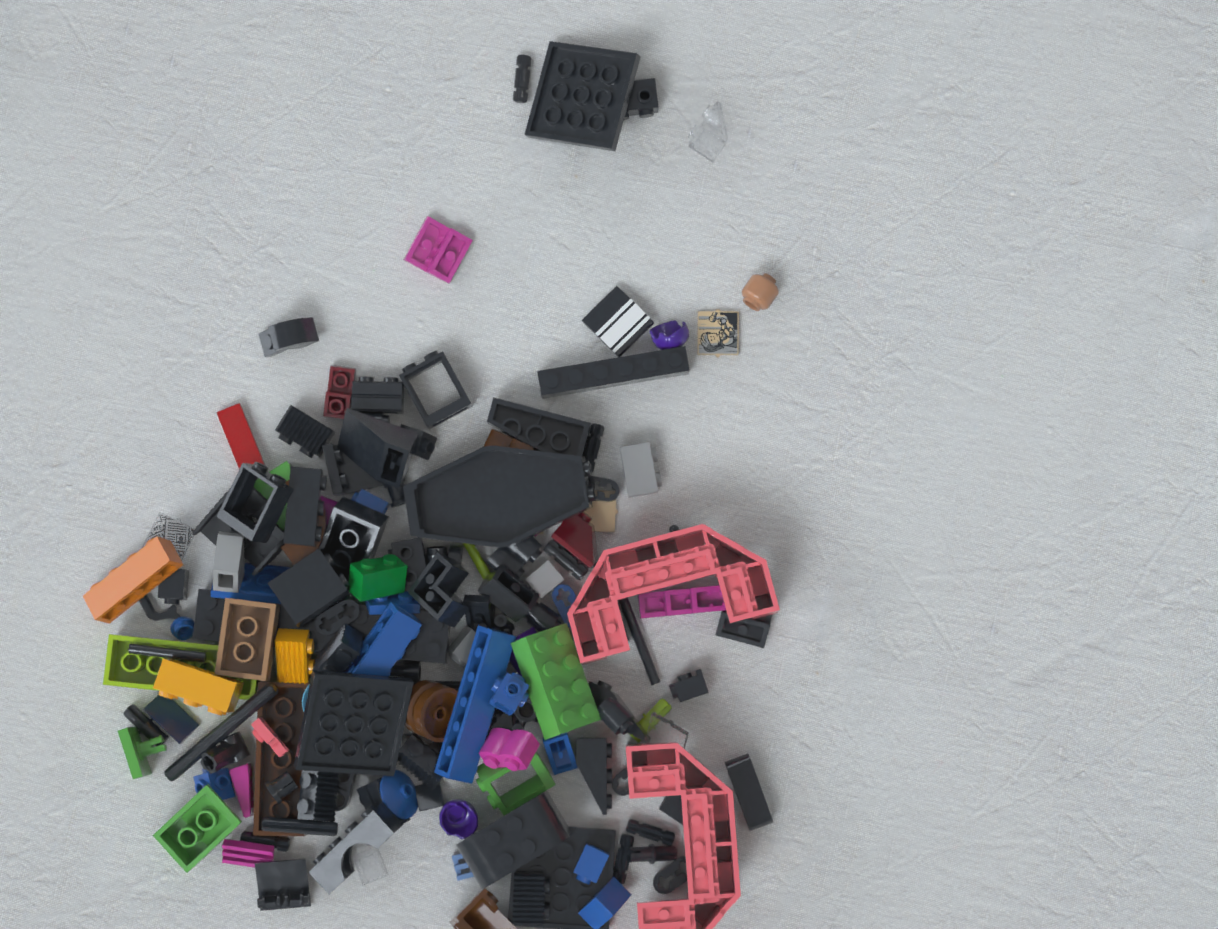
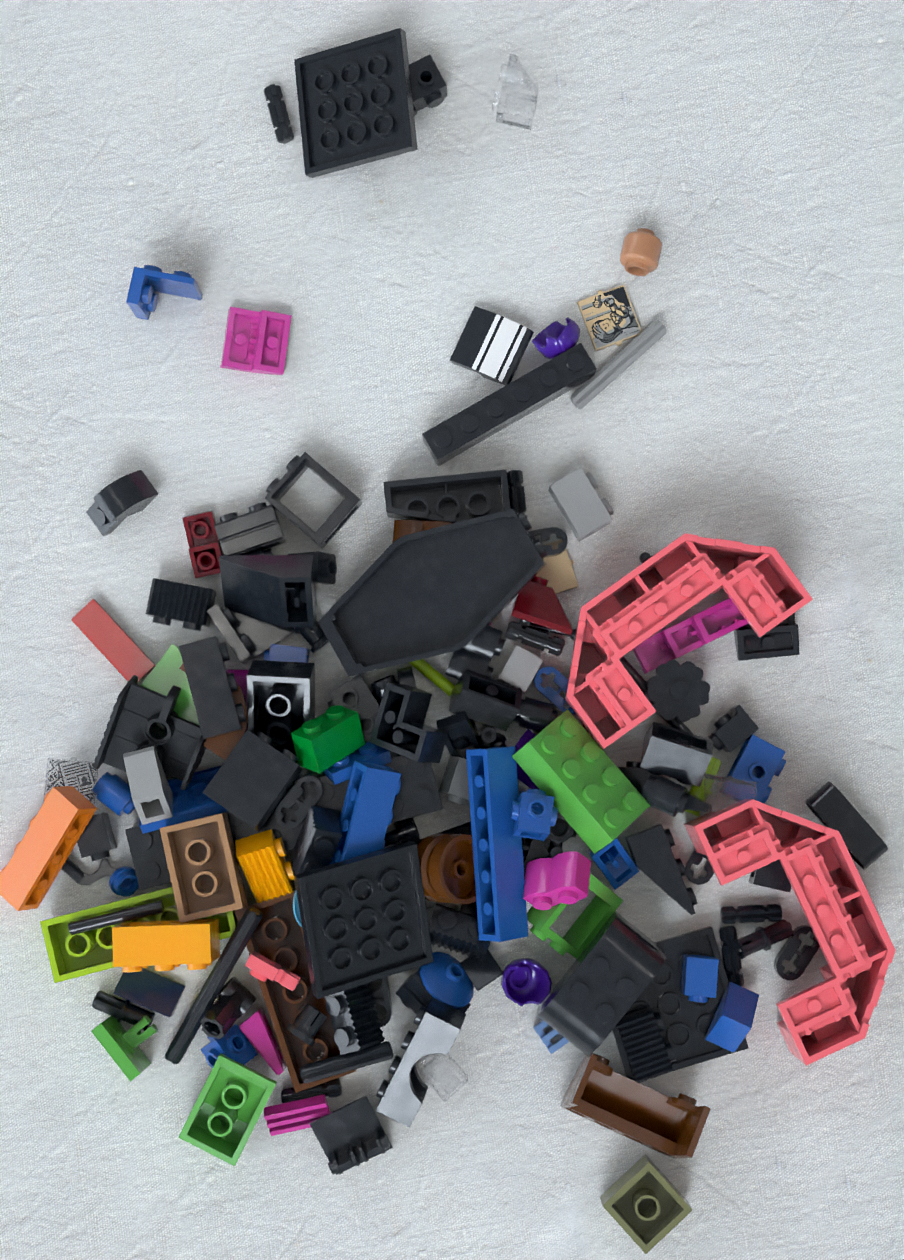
camera: 15 degrees left, 0 degrees up
(200, 558) = (114, 794): none -> blue brick
(238, 494) = (130, 704): black window -> none
(363, 183) = (151, 279): none -> blue bracket
(636, 688) = (676, 754): none -> slope
(657, 640) = (678, 690): none -> black plant
(697, 720) = (758, 763): none -> blue brick
(710, 372) = (618, 364): none -> light grey axle

